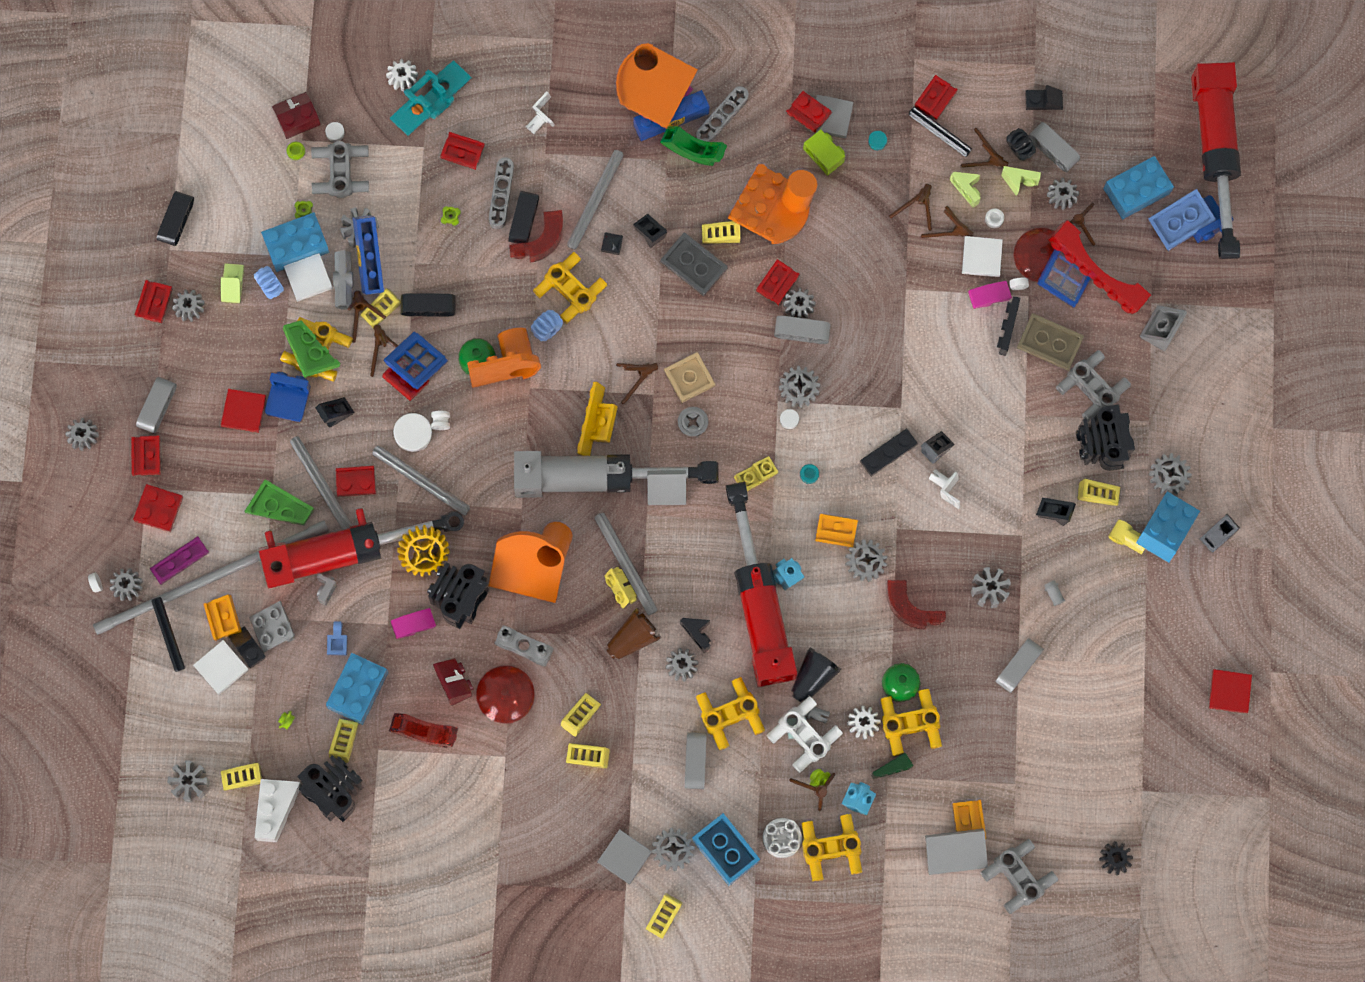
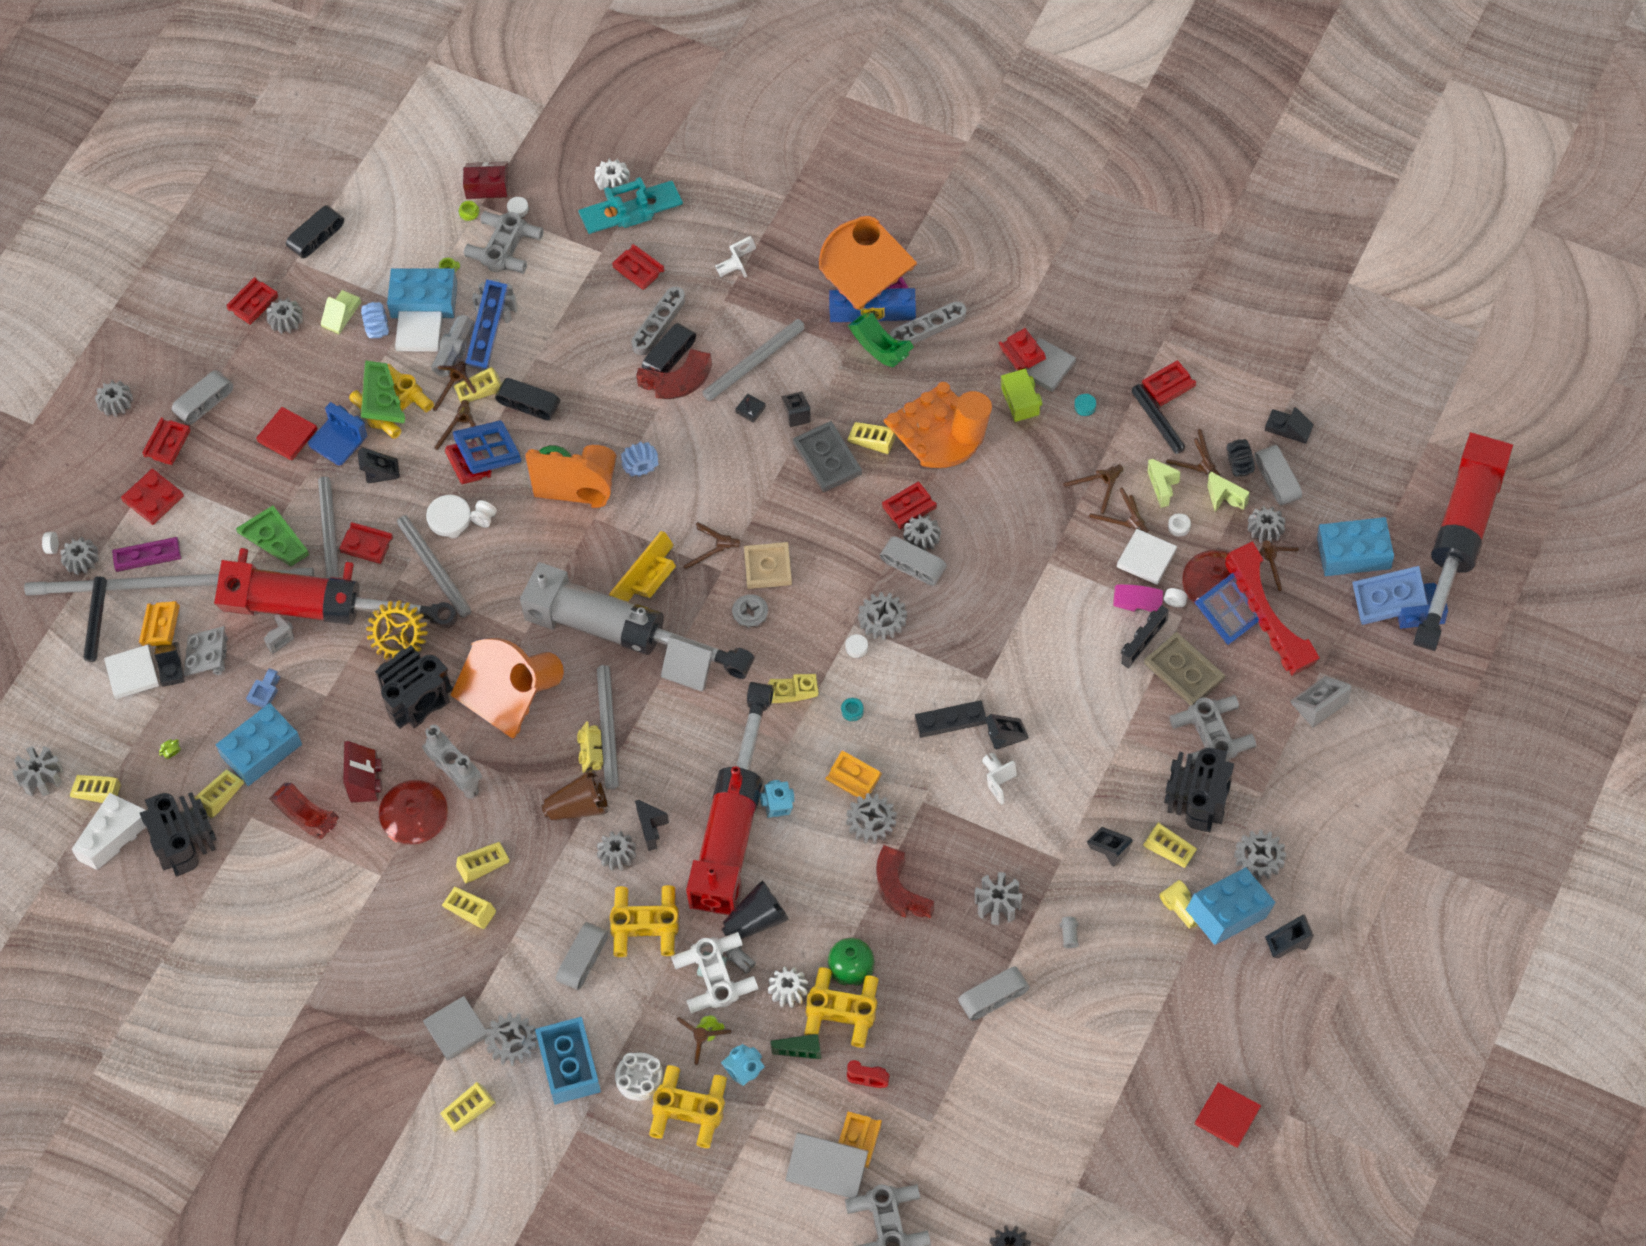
camera: 30 degrees right, 15 degrees down
(413, 623) = (352, 701): dark pink slope -> none
(455, 212) = (595, 319): lime plate -> none
(570, 287) = (683, 433): yellow piece -> none
(960, 767) = (867, 1076): none -> red plate

